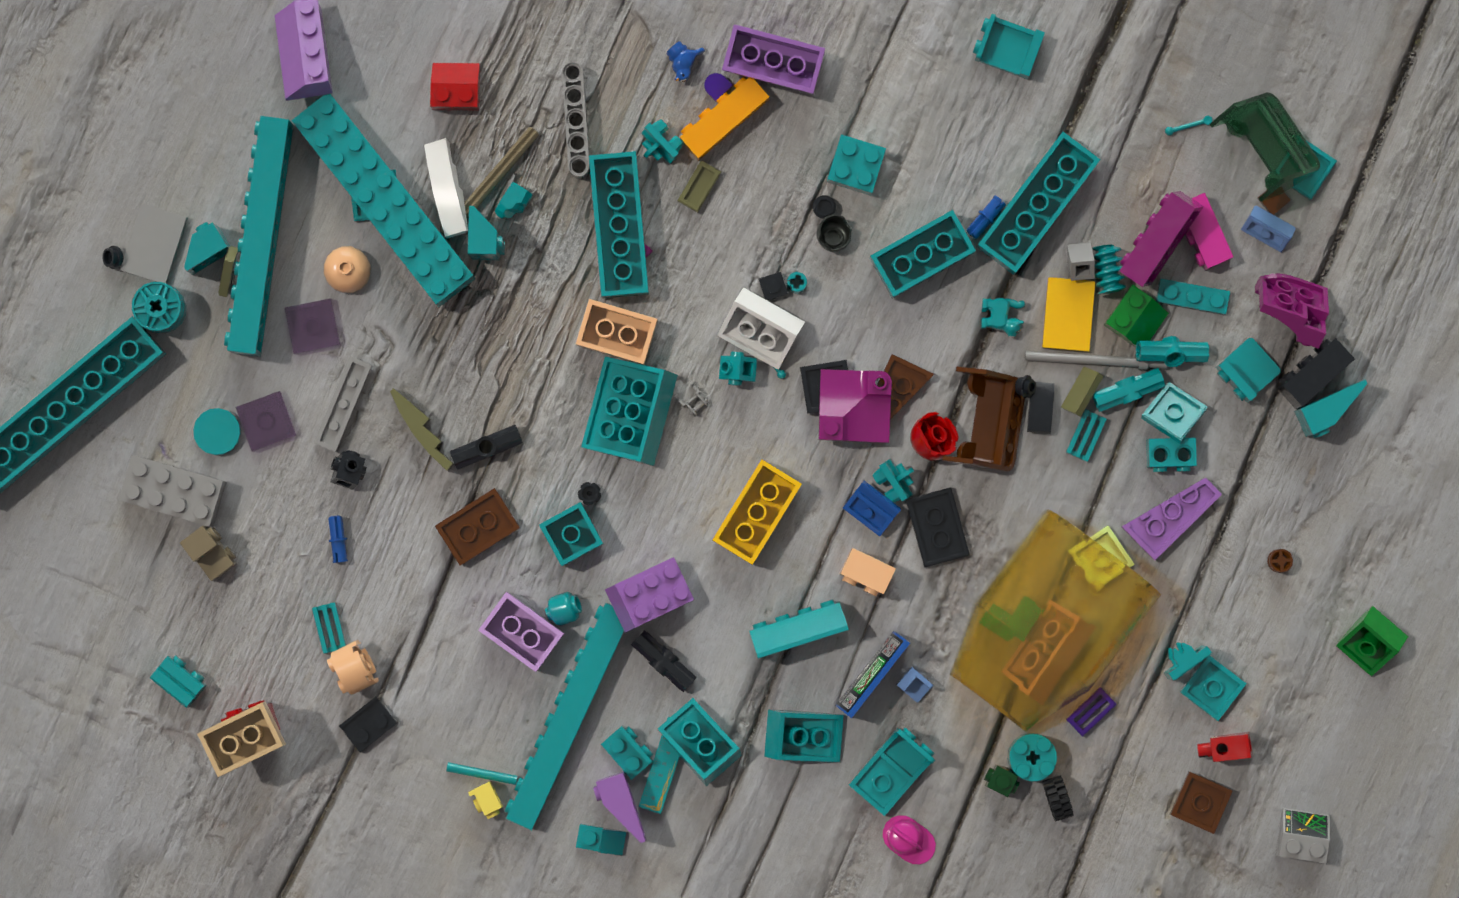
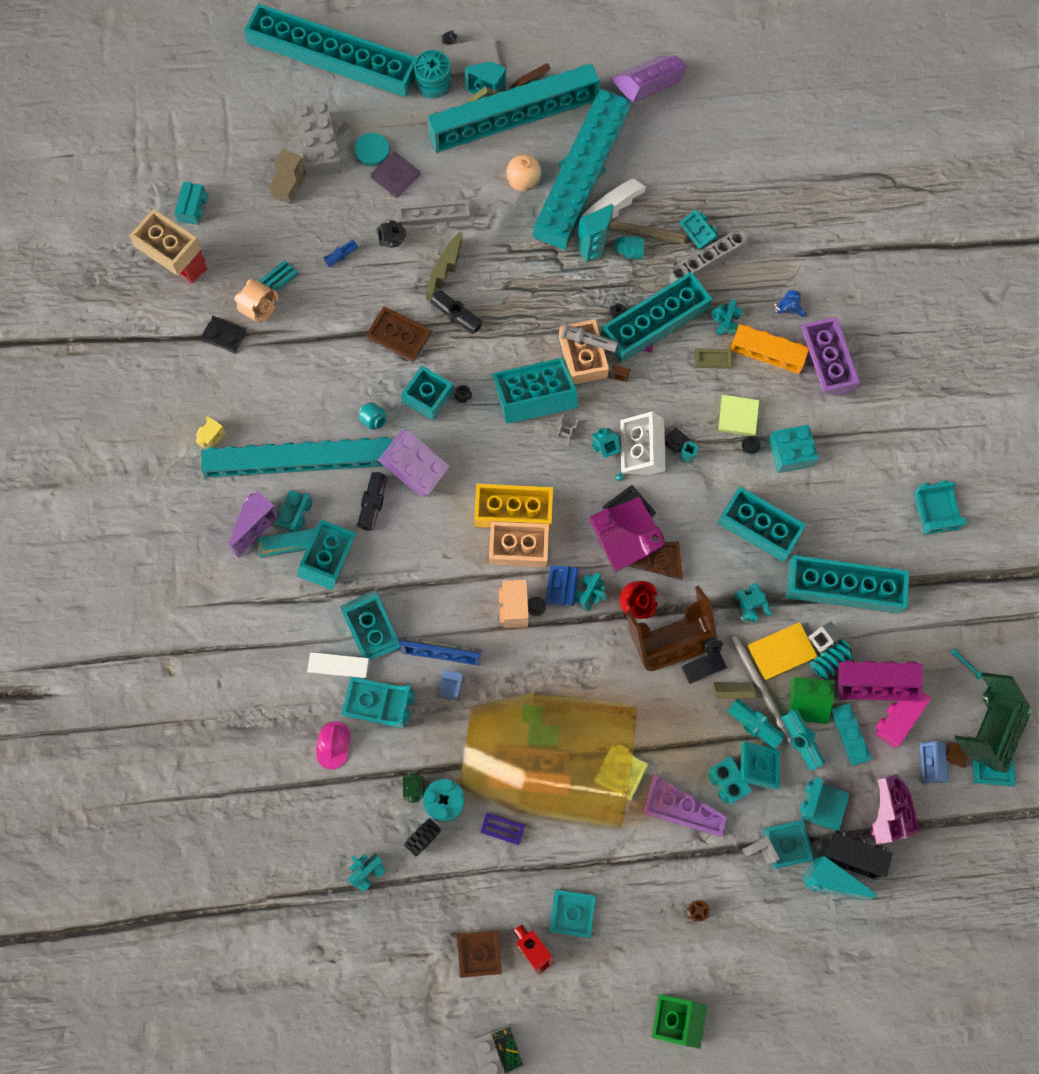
camera: 60 degrees right, 15 degrees down
(229, 194) = (531, 76): none -> reddish brown tile
(312, 326) = (474, 171): clear purple tile -> none
(455, 86) = (680, 177): red slope -> none
(481, 773) = (227, 422): teal bar -> none
(521, 631) = (340, 395): lavender brick -> none
(533, 106) = (698, 229): none -> teal bracket
(587, 267) = (613, 310): none -> black plate
(600, 328) = (580, 335): none -> light grey pin
(601, 839) = (219, 525): teal slope -> none
(662, 304) = (620, 373): none -> reddish brown tile
(716, 85) = (787, 332): dark purple tile -> none
(782, 199) = (738, 415): none -> yellowish green tile
(799, 629) = (445, 580): teal slope -> none
(802, 530) = (518, 544): none -> light nougat brick
(828, 791) = (338, 665): none -> white tile
(834, 233) = (738, 458): pearl dark grey hair -> none
(878, 547) = (536, 606): none -> black plate
(937, 527) = (575, 641): black tile -> none
(985, 217) = (812, 553): blue axle -> none
(1055, 875) = (359, 878): none -> teal hips
(1094, 417) = (720, 710): teal tile -> none
(1185, 659) = (582, 876): teal piece -> none
(1253, 464) = (766, 848): none -> light grey panel
(1265, 429) = (790, 843): none -> teal tile

